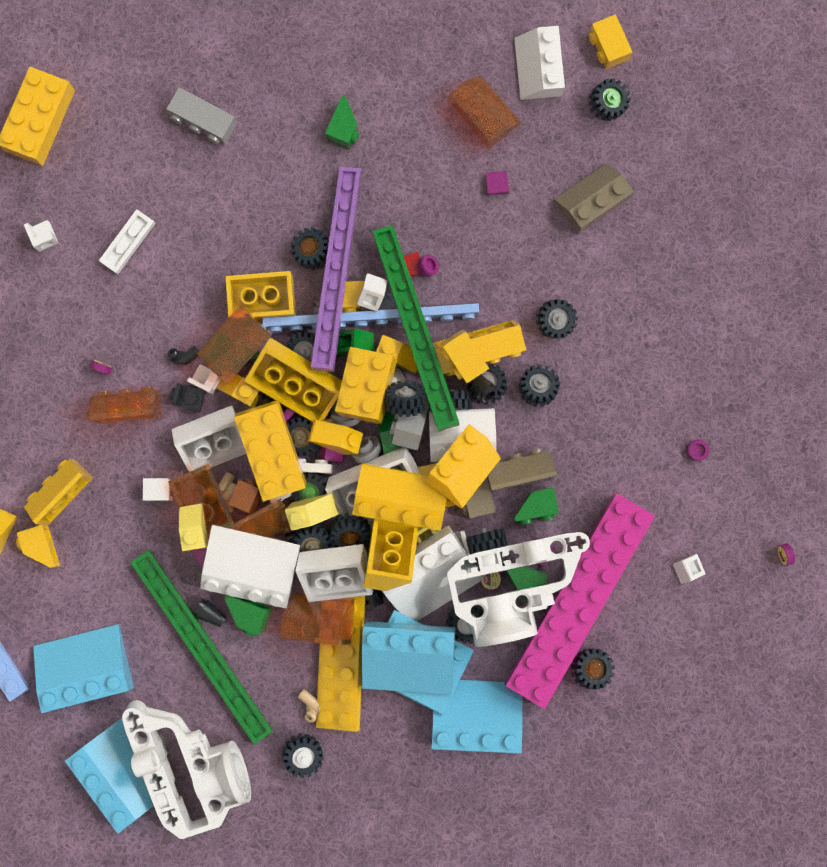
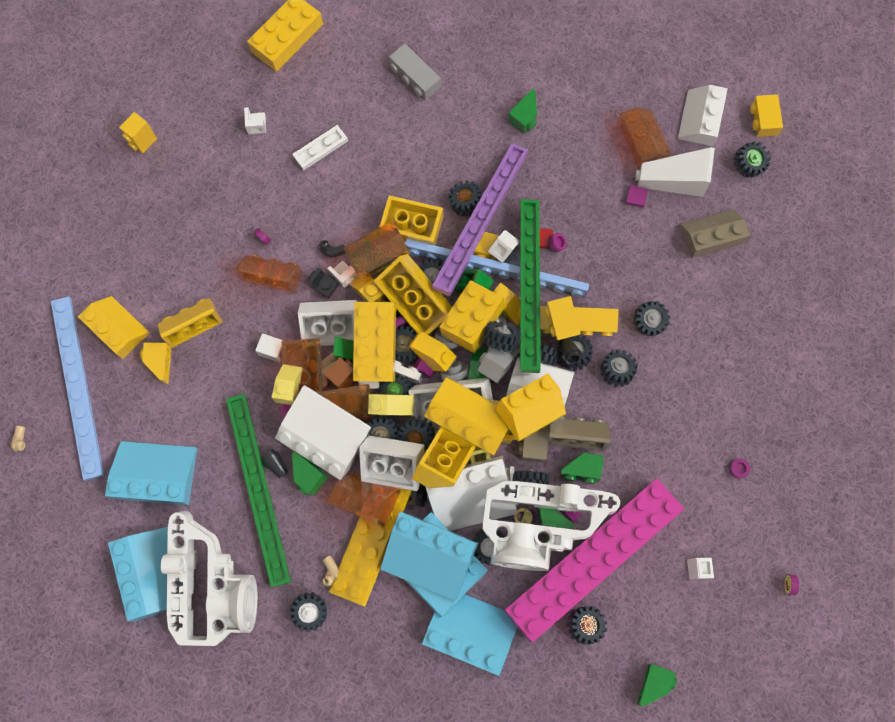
camera: 20 degrees right, 10 degrees down
(239, 468) = (344, 349): none -> green slope
(537, 143) = (679, 174): none -> white slope
(681, 704) = (656, 684): none -> green slope

